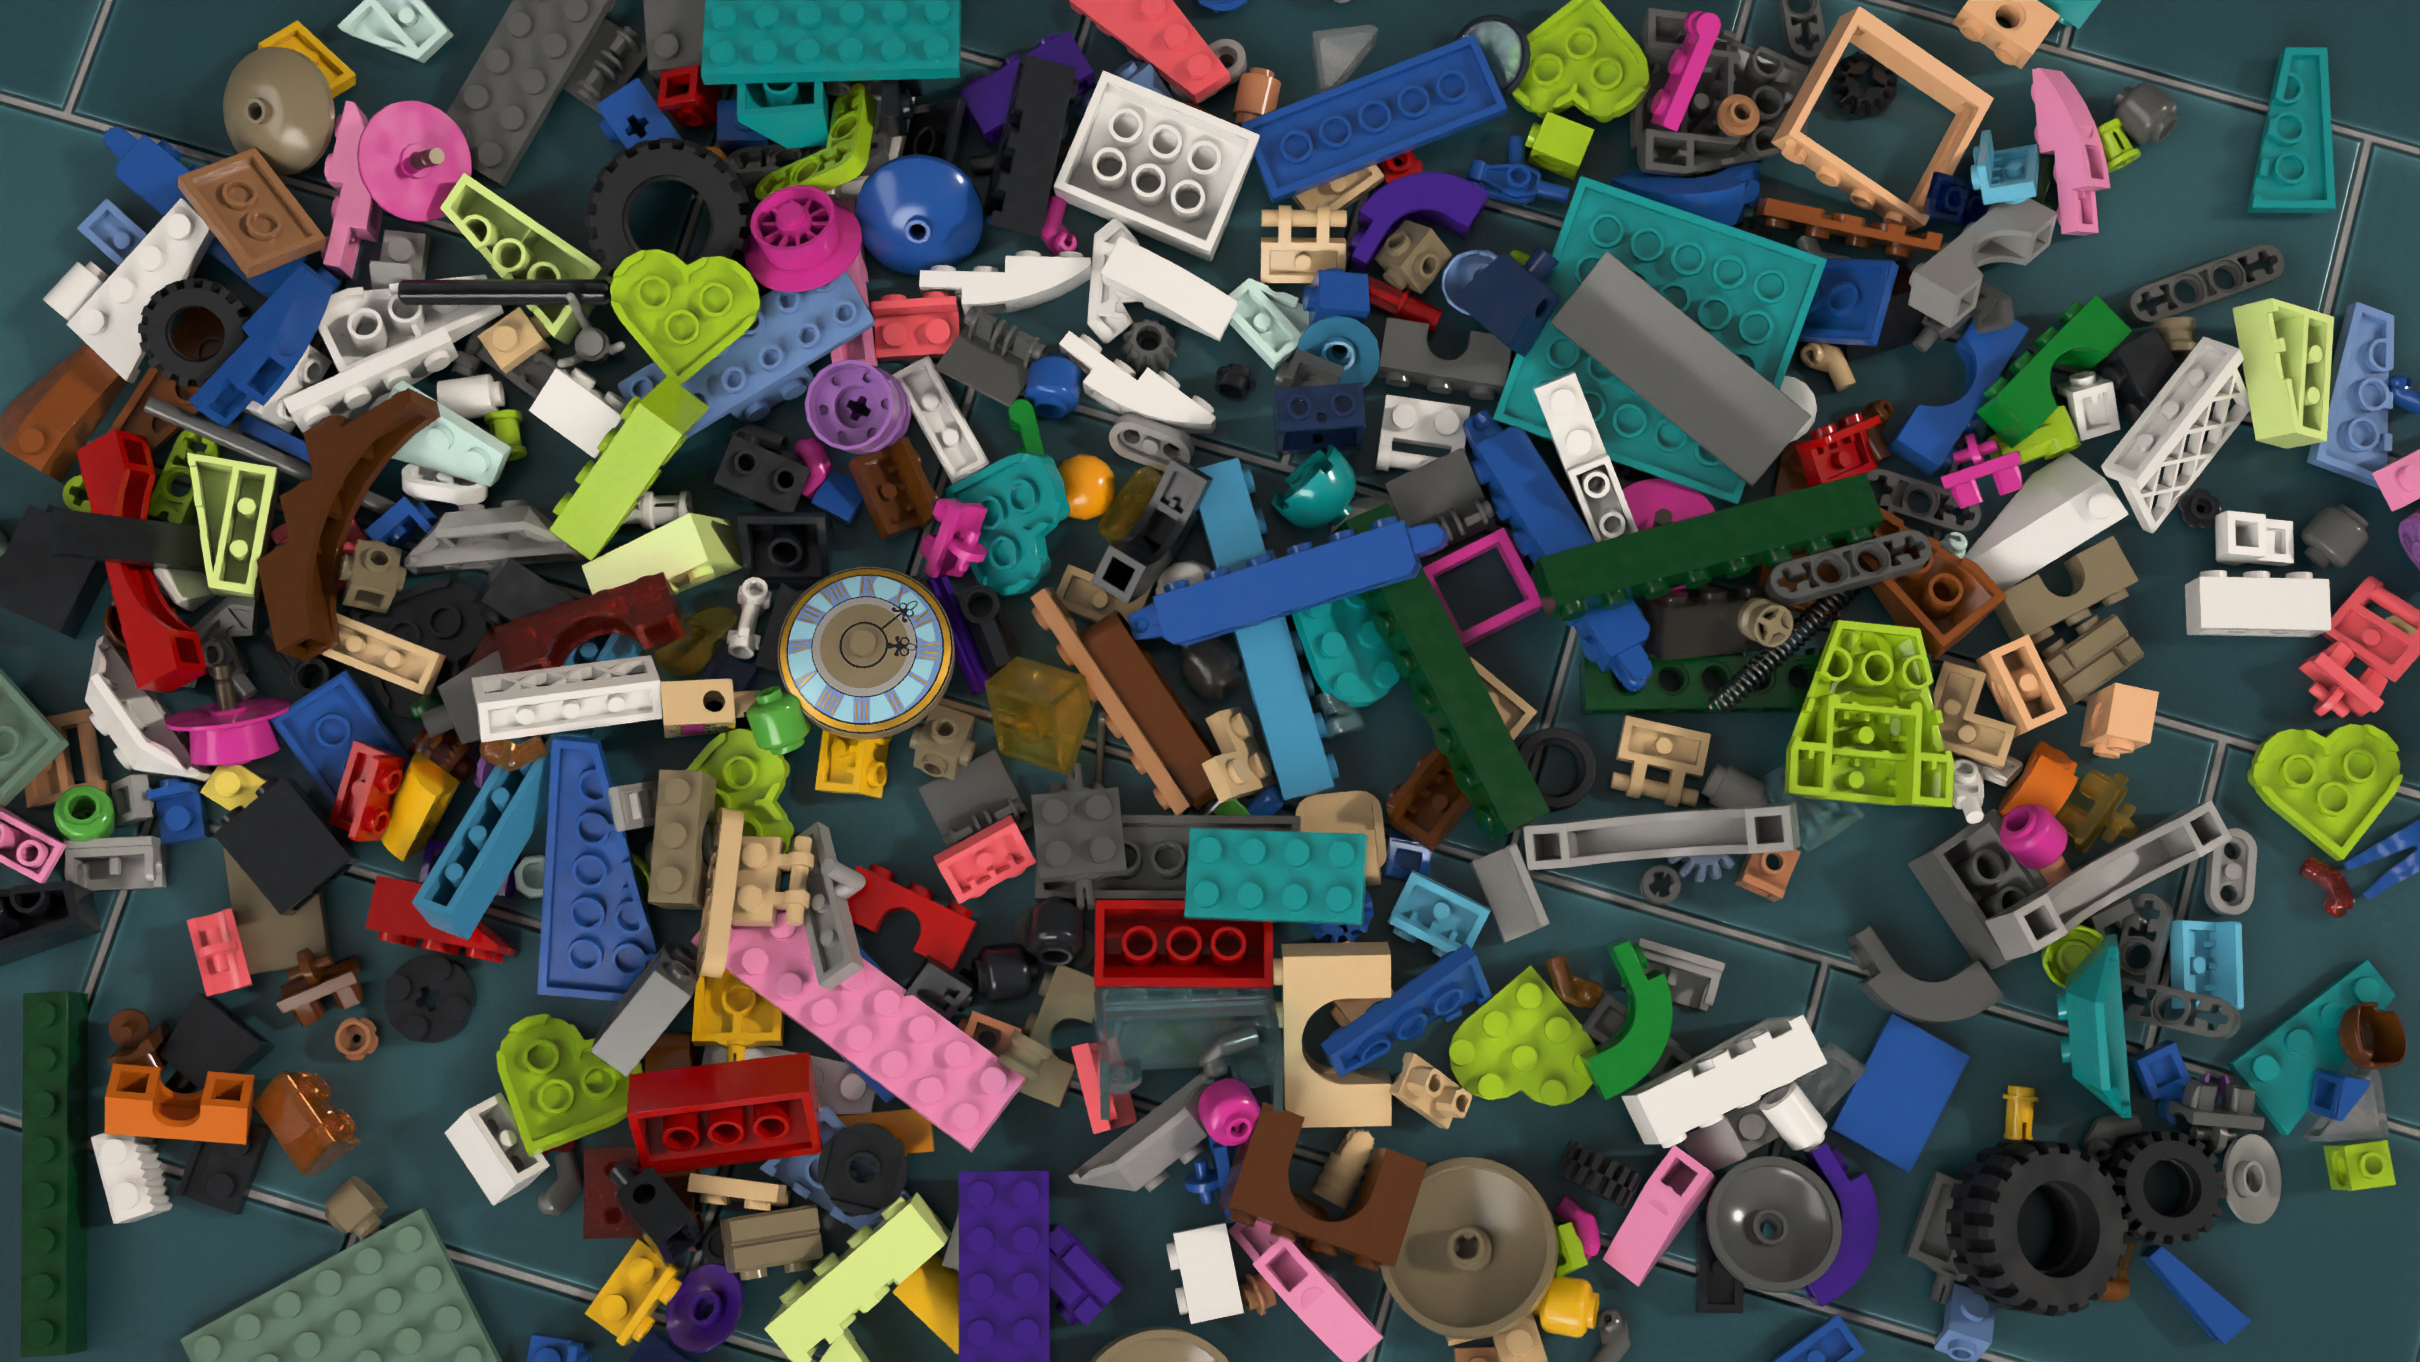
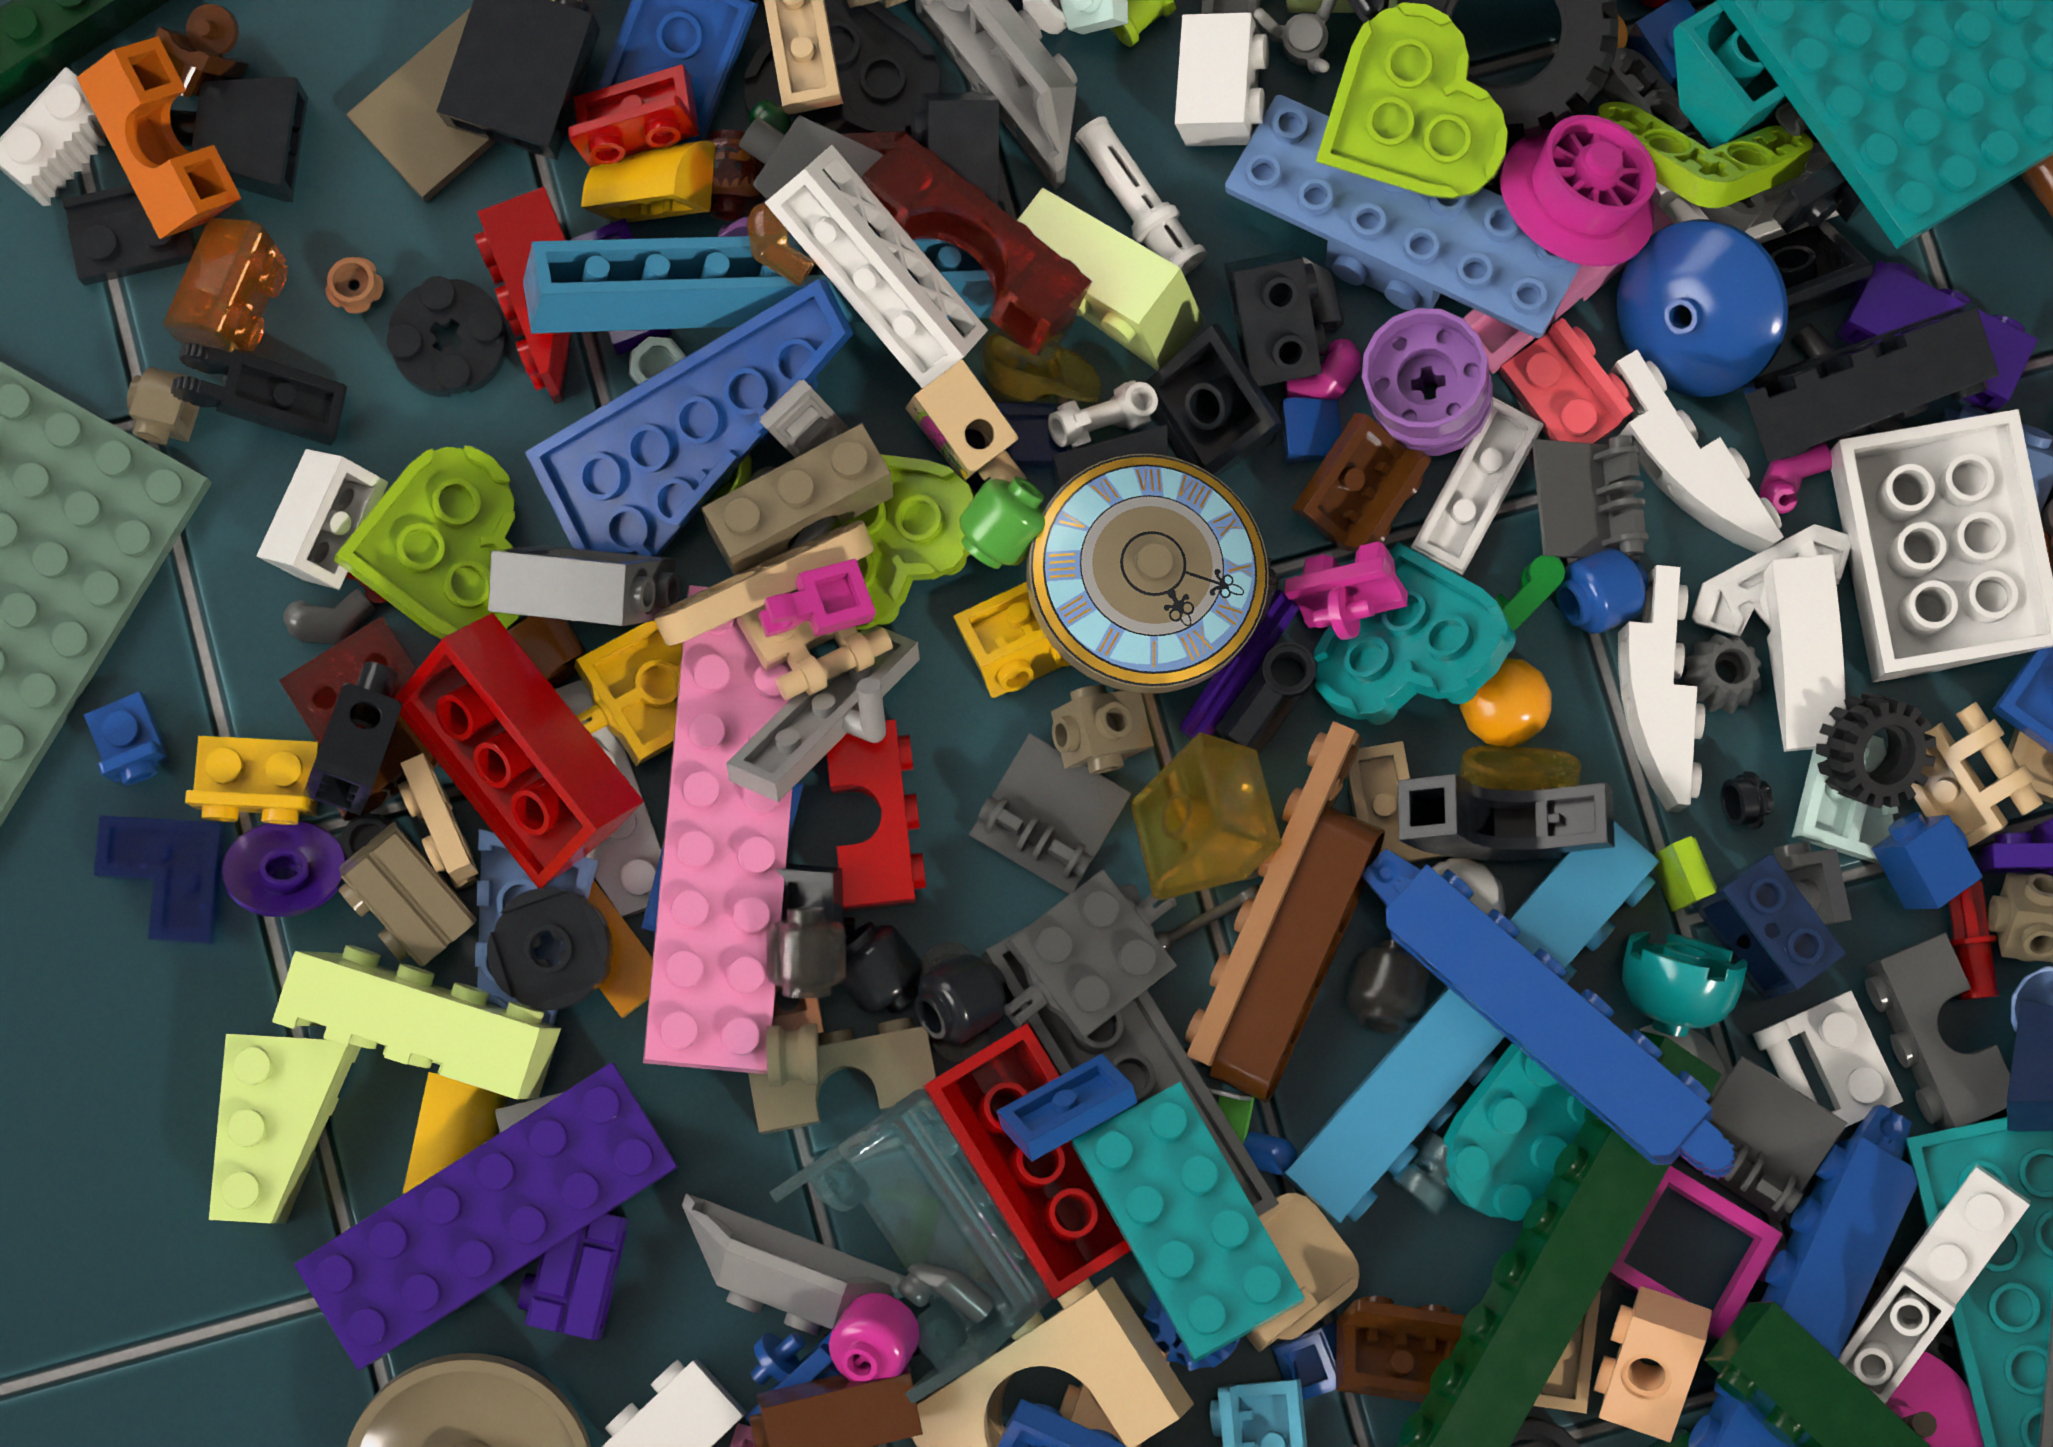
camera: 55 degrees right, 0 degrees up
(219, 952) = (355, 73): coral hips -> none
(315, 979) = (392, 198): reddish brown hips -> none
(390, 1138) = (263, 392): none -> black hinge
(627, 467) = (1188, 162): lime wedge -> none
(755, 858) = (826, 597): none -> dark pink plate
(967, 1008) = (806, 953): none -> clear smoke head
(985, 860) = (993, 863): coral bracket -> none
(1121, 1105) = (803, 1205): coral bracket -> none
(1152, 444) = (1608, 750): light grey plate -> none
(1162, 906) = (1067, 1107): none -> blue plate
(1242, 765) = (1296, 1096): tan plate -> none
(1255, 448) = (1683, 874): none -> lime tile
(1267, 273) = (1902, 760): none -> black tyre
(1362, 347) = (1890, 926): dark azure dish -> none
(1551, 665) = (1649, 1395): none -> light nougat brick

